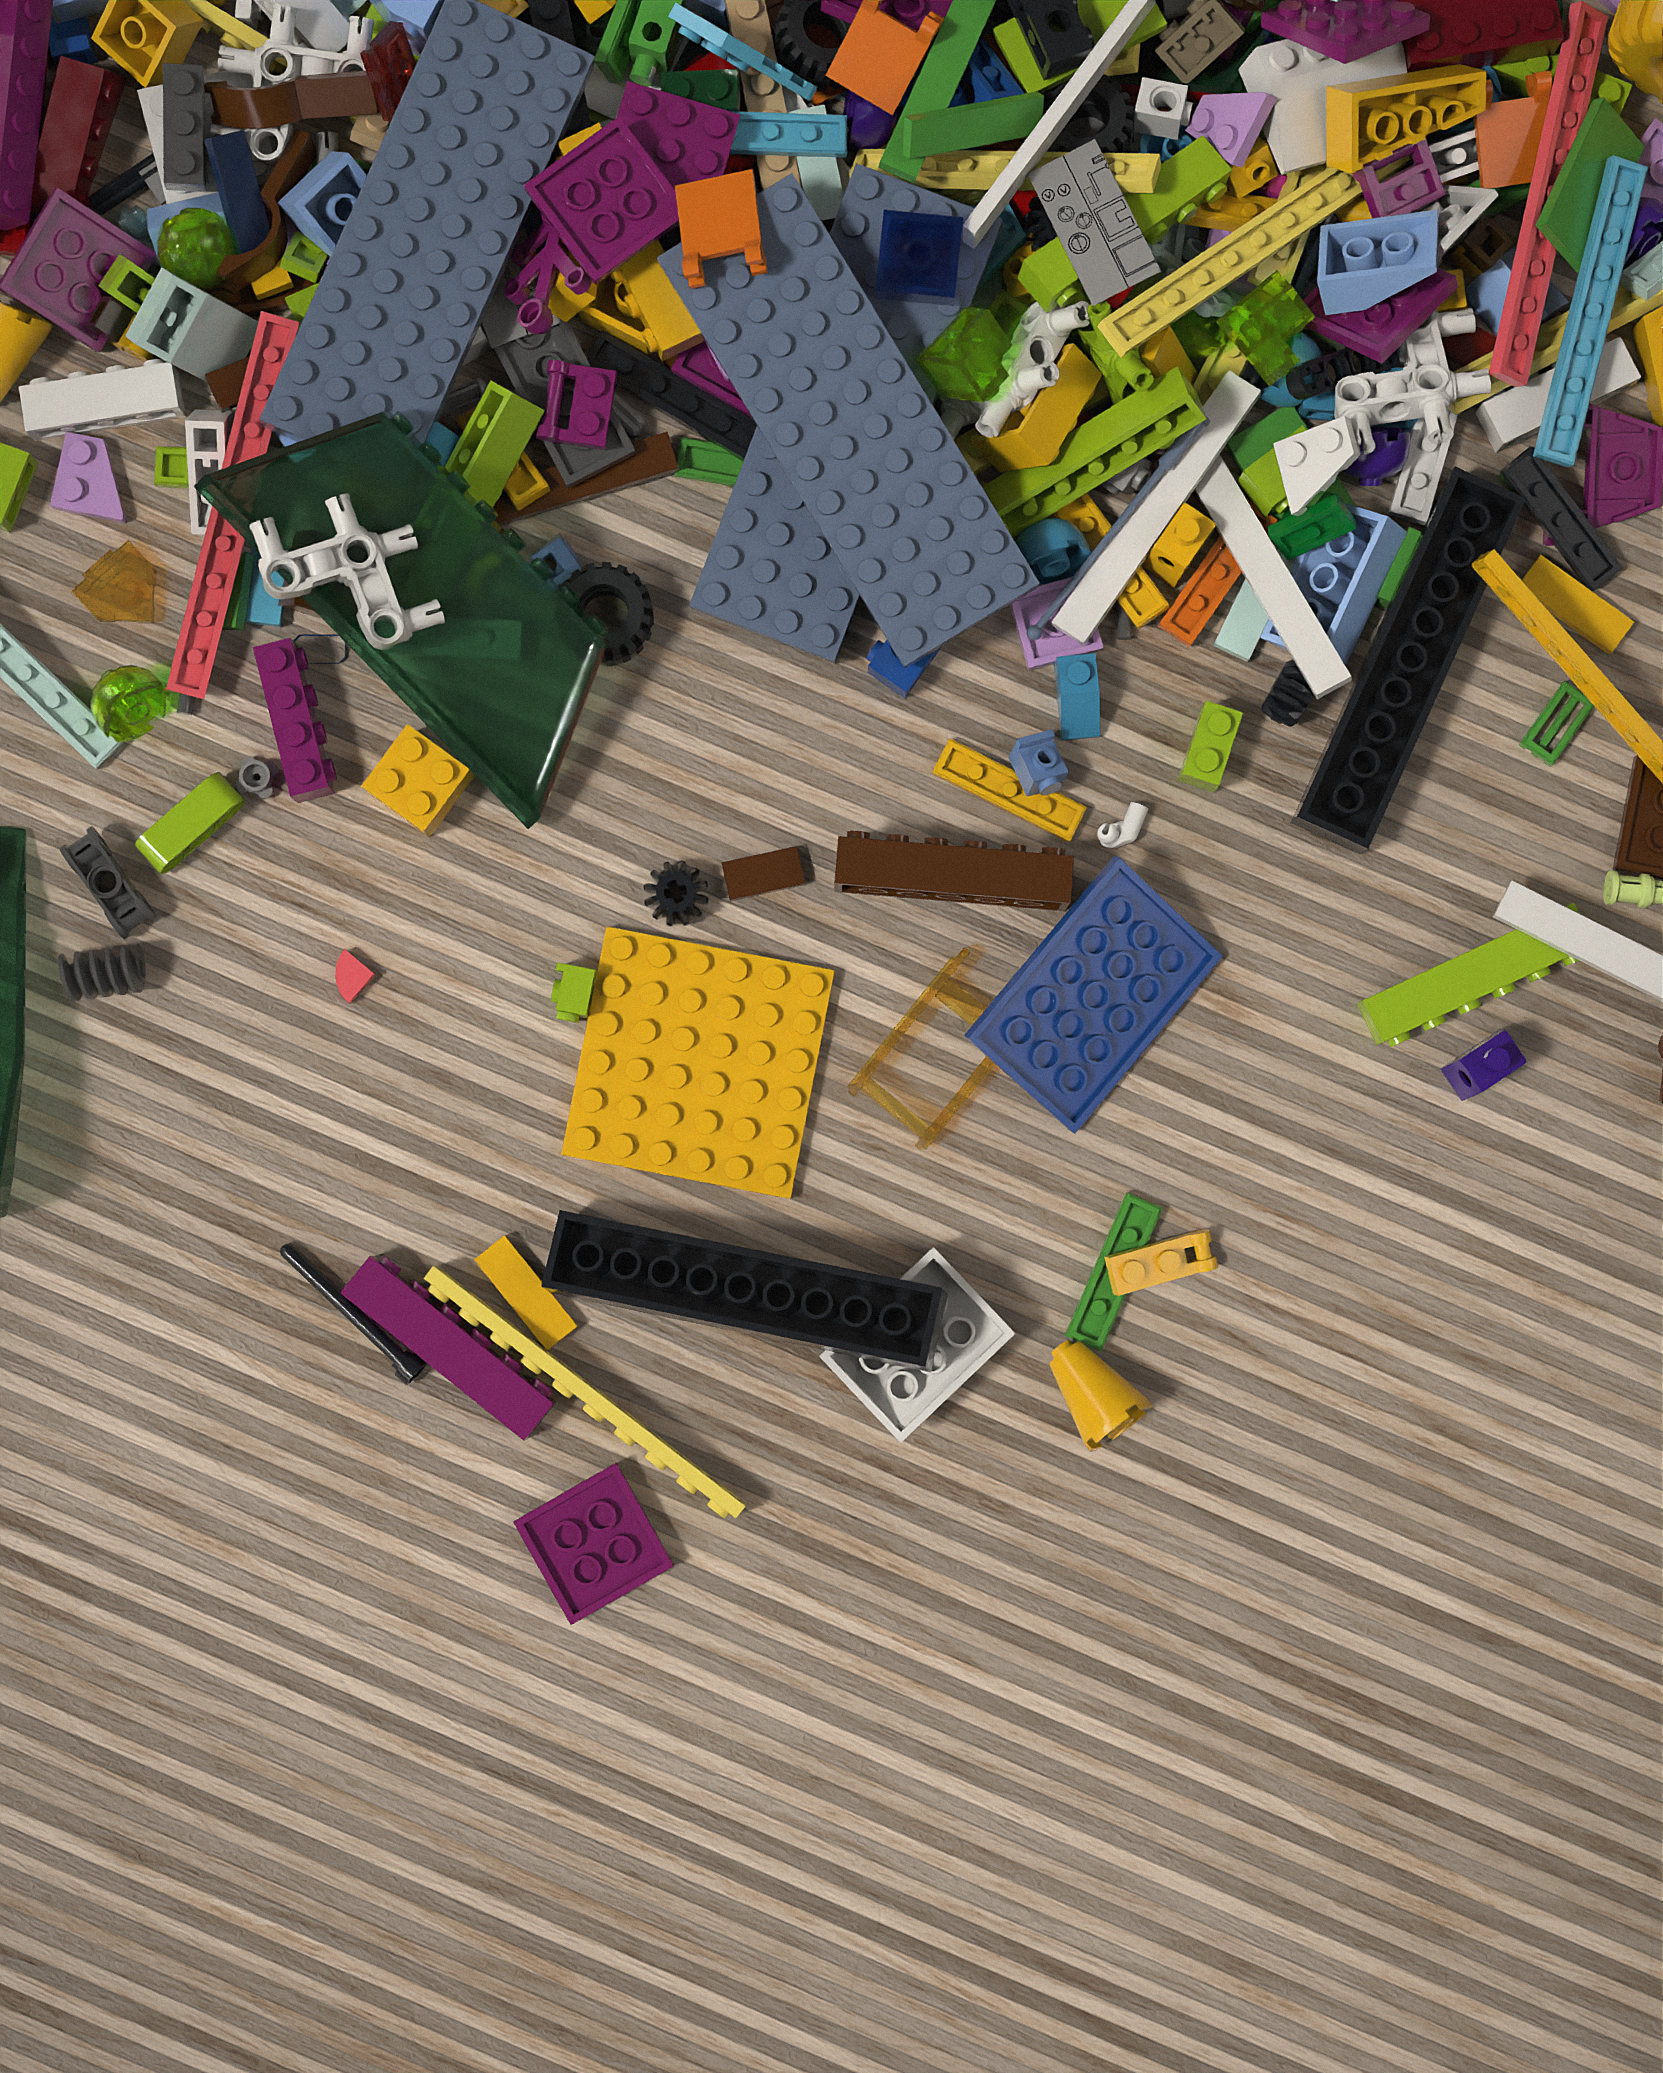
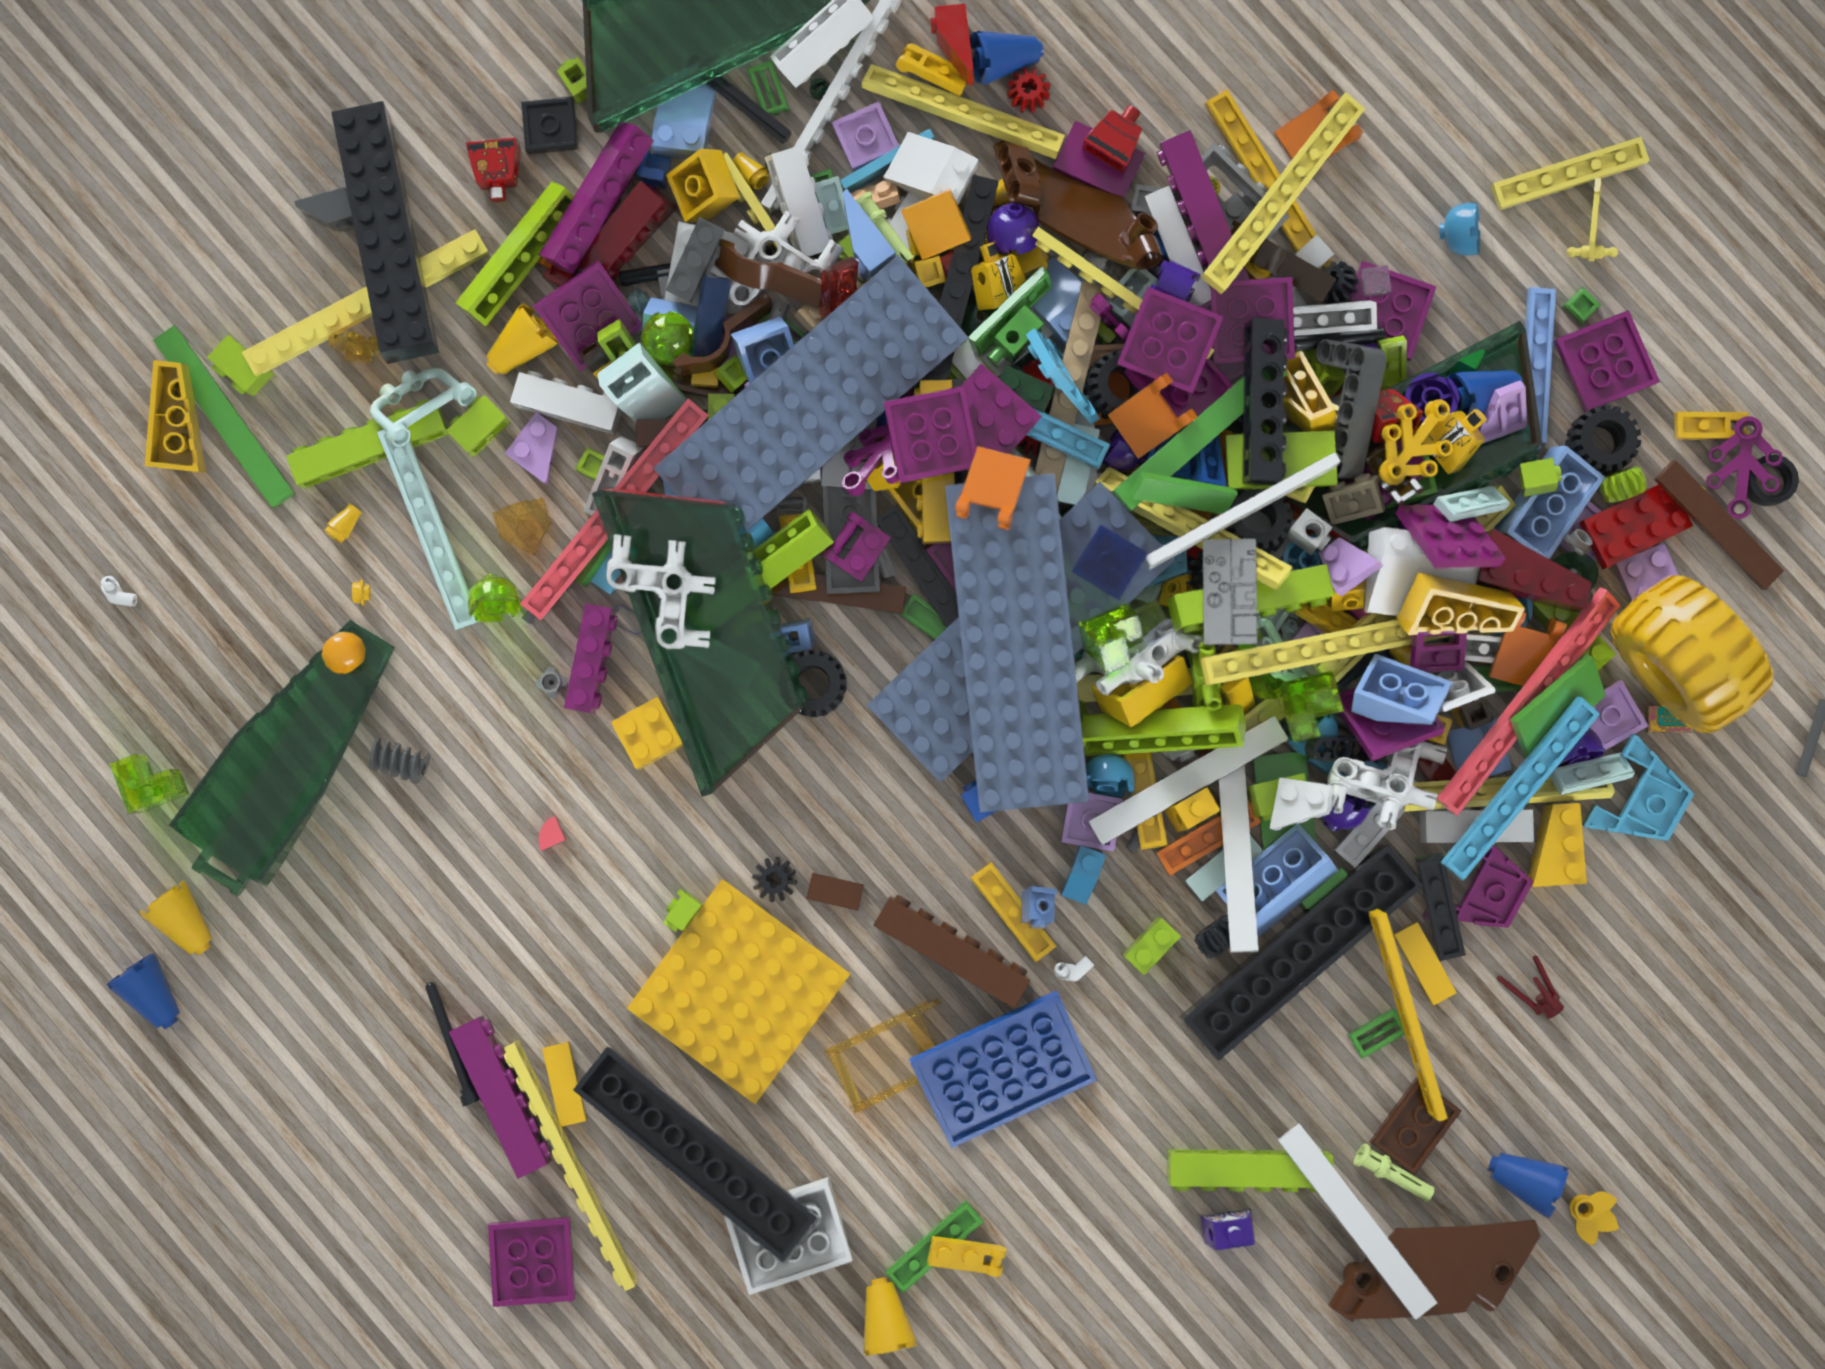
camera: 30 degrees right, 0 degrees up
(93, 859) = (420, 693): dark grey piece -> none
(189, 823) = (496, 692): lime beam -> none
(1166, 463) = (1207, 756): sand blue piece -> none
(1313, 528) = (1284, 841): green tile -> none

